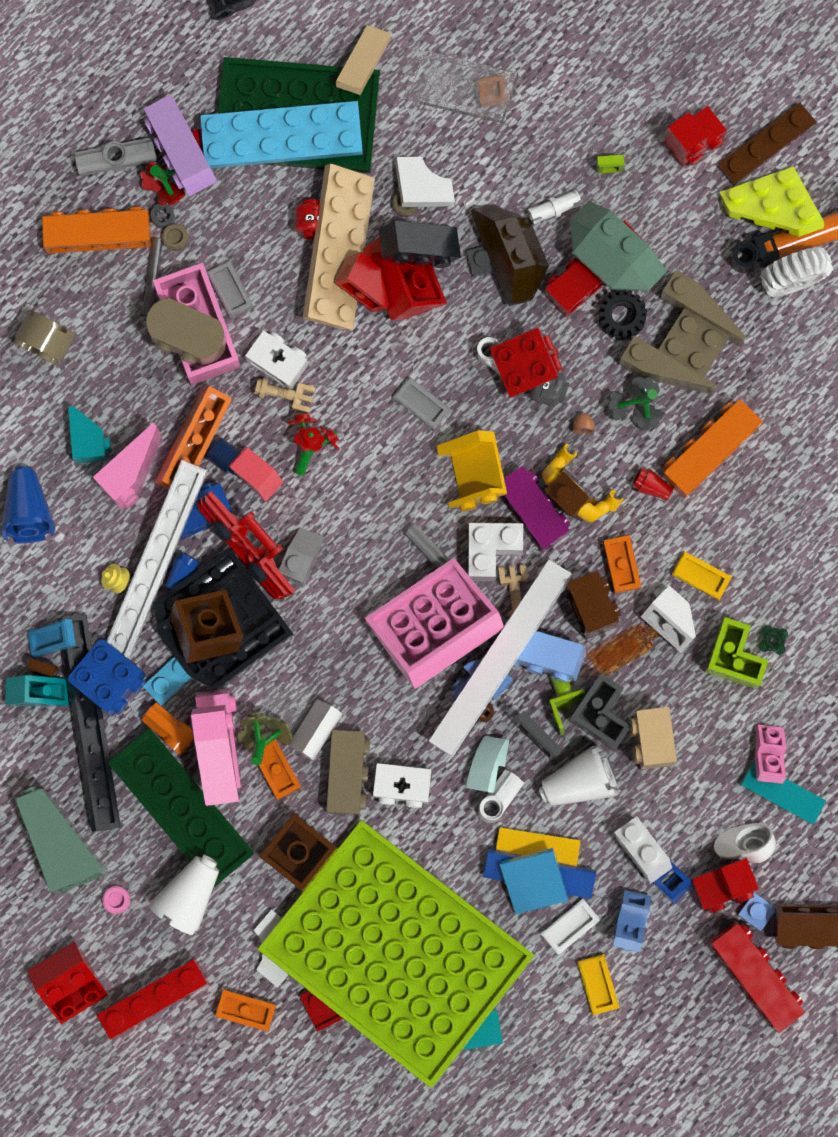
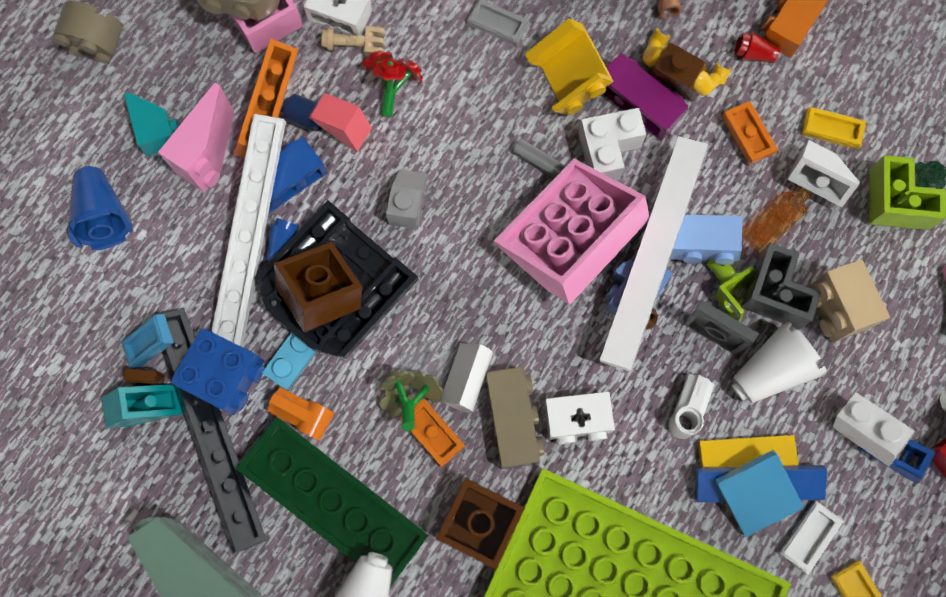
camera: 15 degrees left, 5 degrees down
(115, 578) = (208, 262): light yellow wheel -> none
(216, 745) = (357, 421): bright pink wedge -> none
(257, 561) = (326, 180): red piece -> none
(484, 768) = (666, 372): light aqua slope -> none
(514, 584) = (641, 175): tan hinge -> none
(592, 604) = (736, 175): reddish brown brick -> none
(631, 921) = (881, 515): medium blue brick -> none

